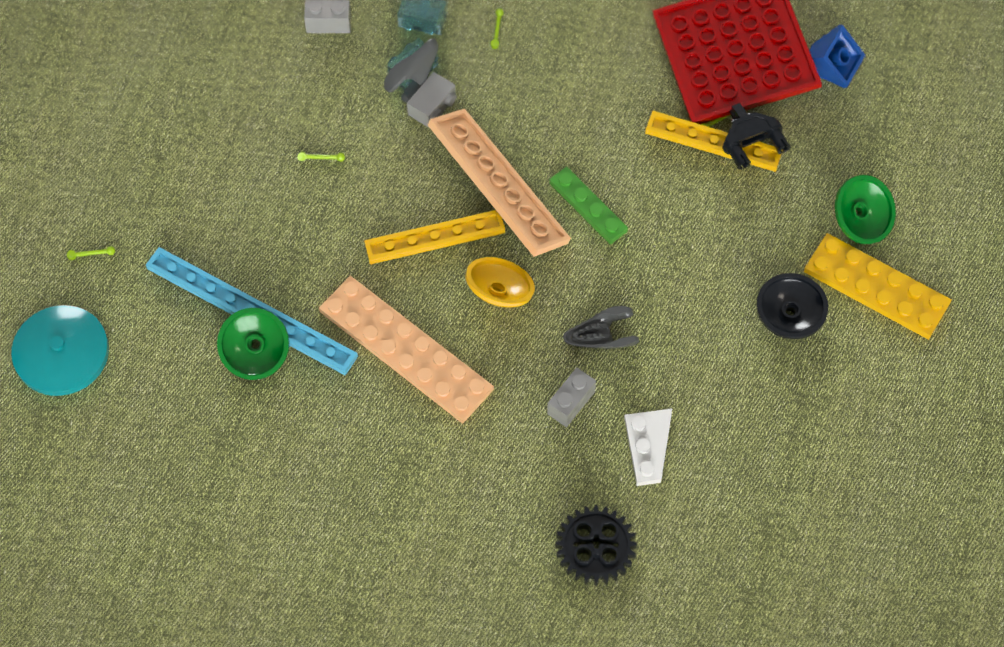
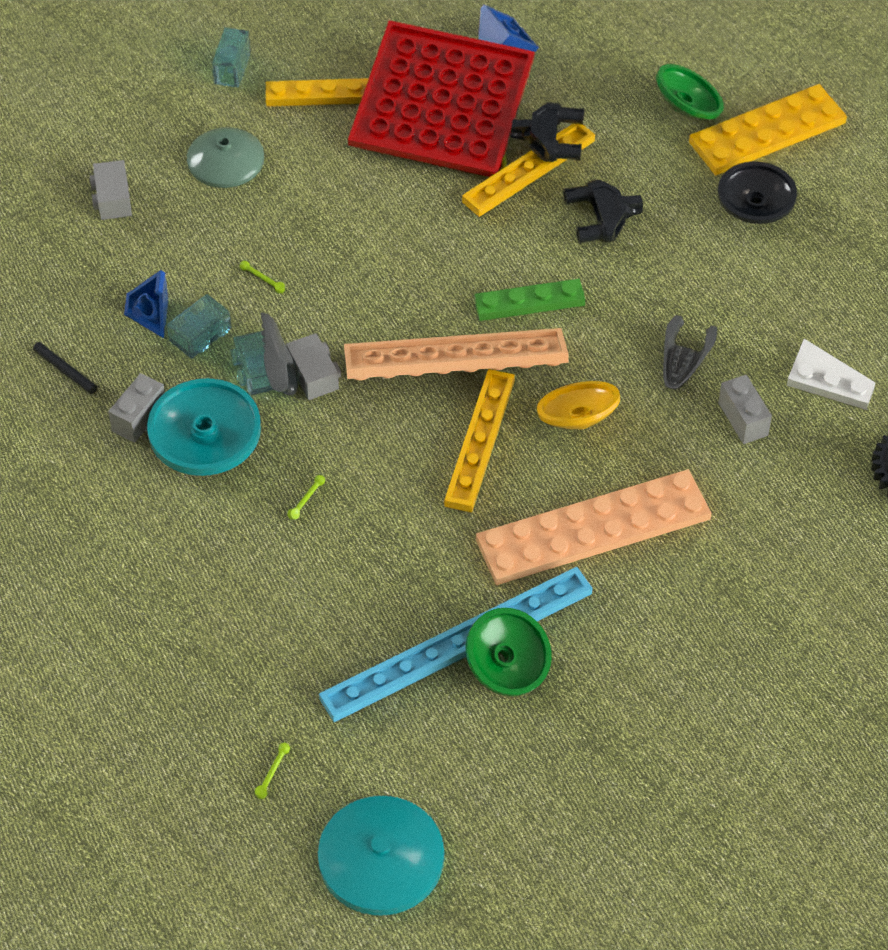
camera: 60 degrees left, 10 degrees down
(333, 62) = (204, 427): none -> teal dish
(708, 215) = (609, 208): none -> black connector

